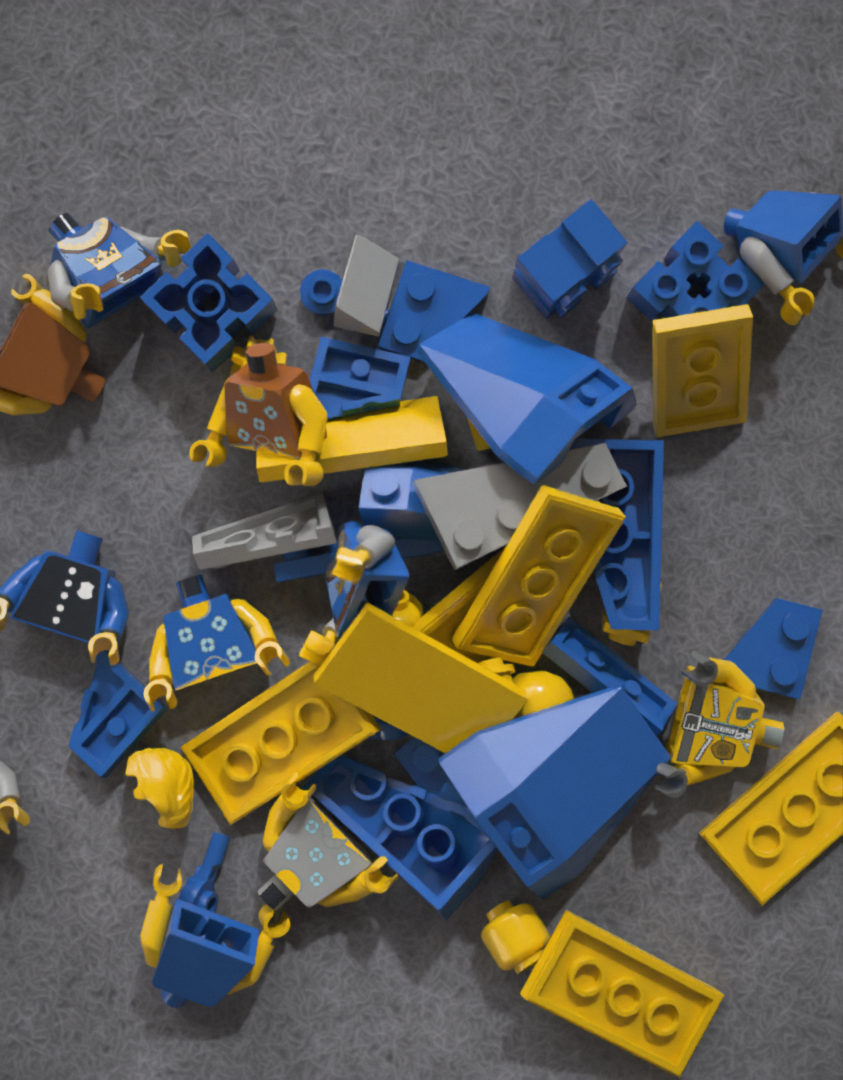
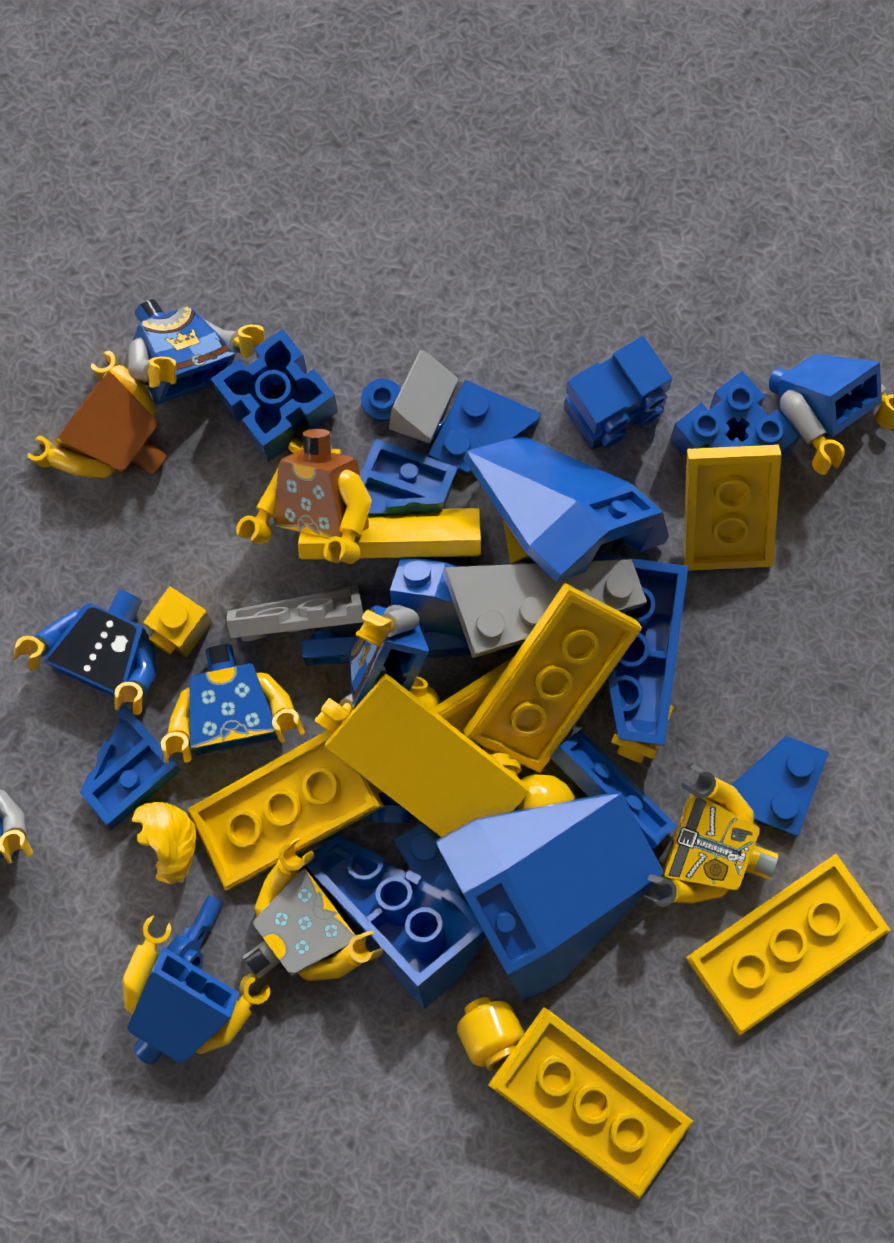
camera: 10 degrees right, 10 degrees down
(141, 559) = (176, 623): none -> yellow brick

